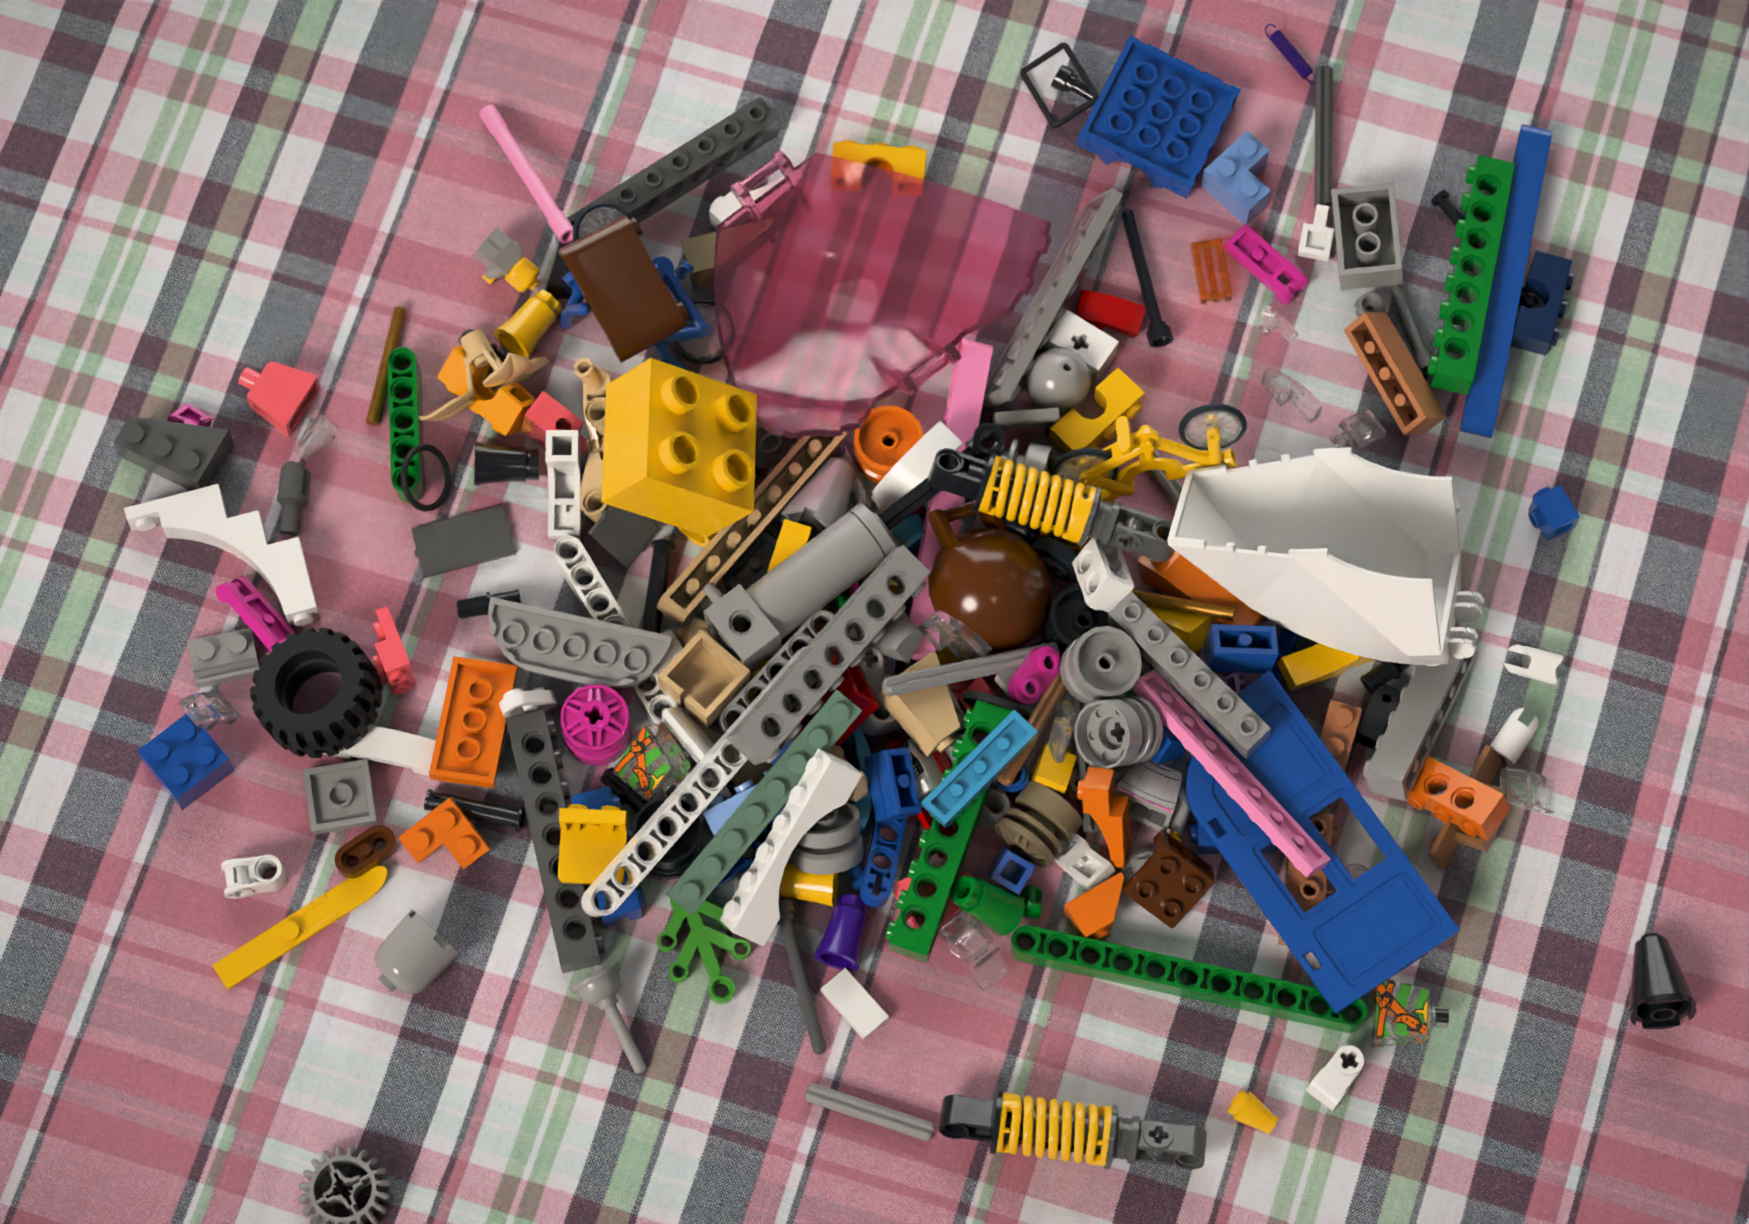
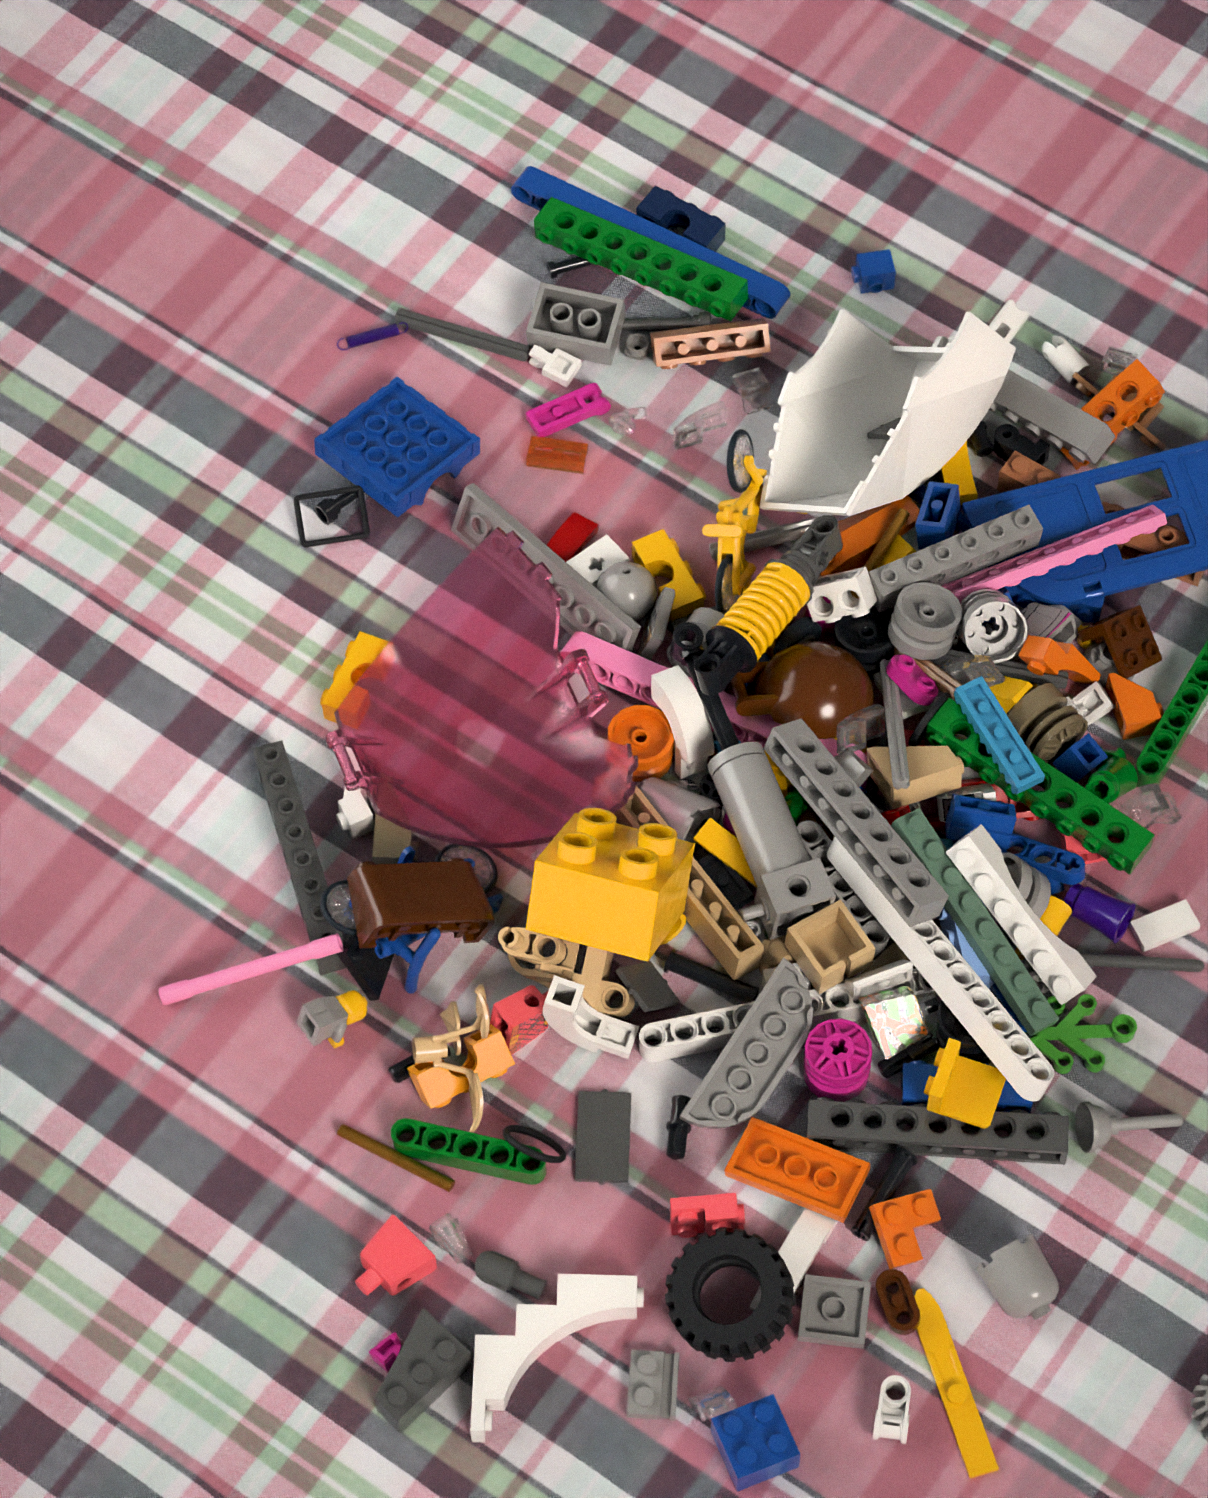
camera: 70 degrees left, 10 degrees down
(254, 610) = (620, 1338): dark pink plate -> none
(504, 464) = (541, 1075): black plant -> none
(521, 702) = (795, 1113): white plate -> none
(528, 324) = (404, 1013): yellow plant -> none
(1158, 333) = (600, 508): black piece -> none
(1233, 178) = (480, 408): medium blue brick -> none

